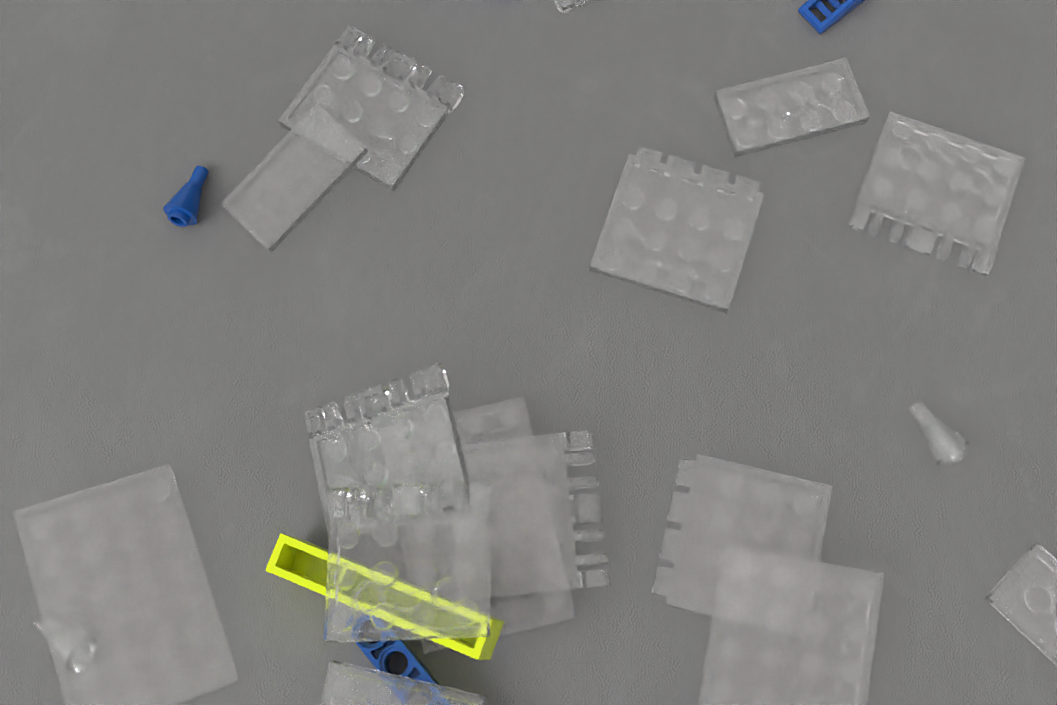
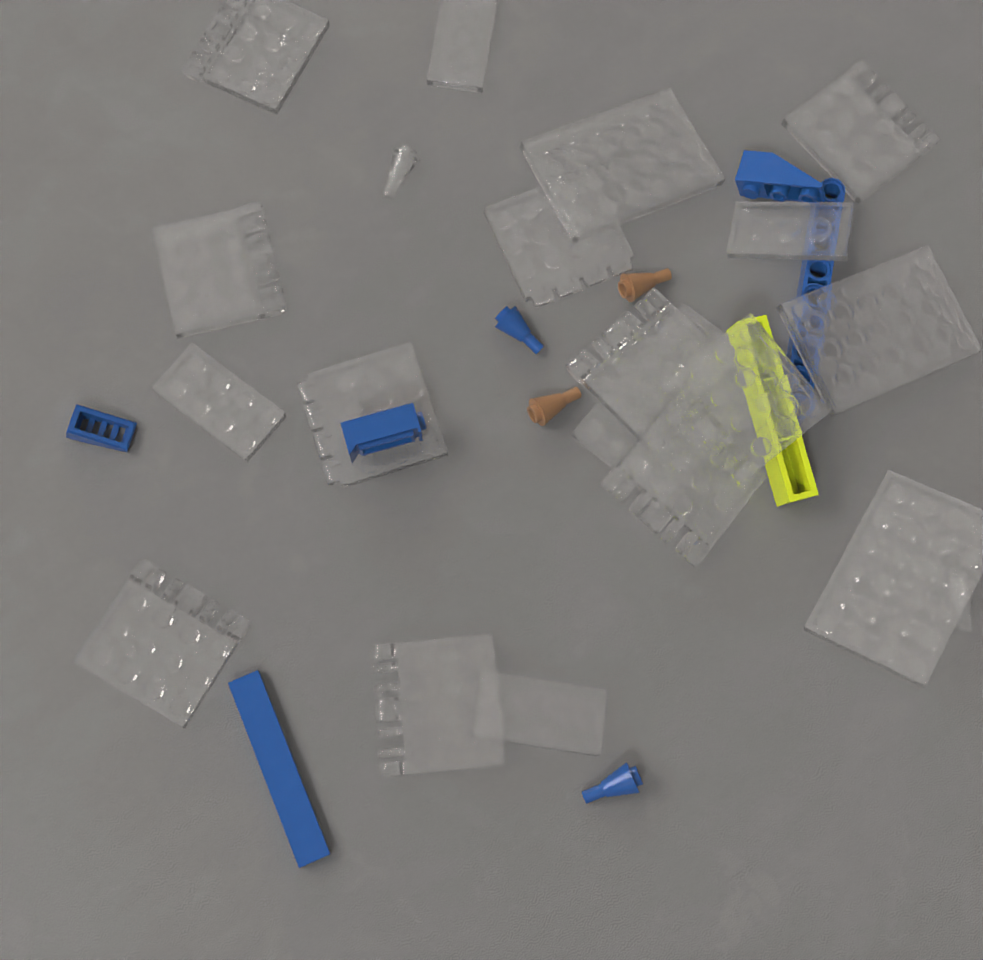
camera: 135 degrees left, 0 degrees up
(566, 393) = (544, 408): none -> medium nougat cone
(630, 583) = (636, 284): none -> medium nougat cone
(650, 211) = (383, 430): none -> blue window
(677, 423) = (512, 323): none -> blue cone

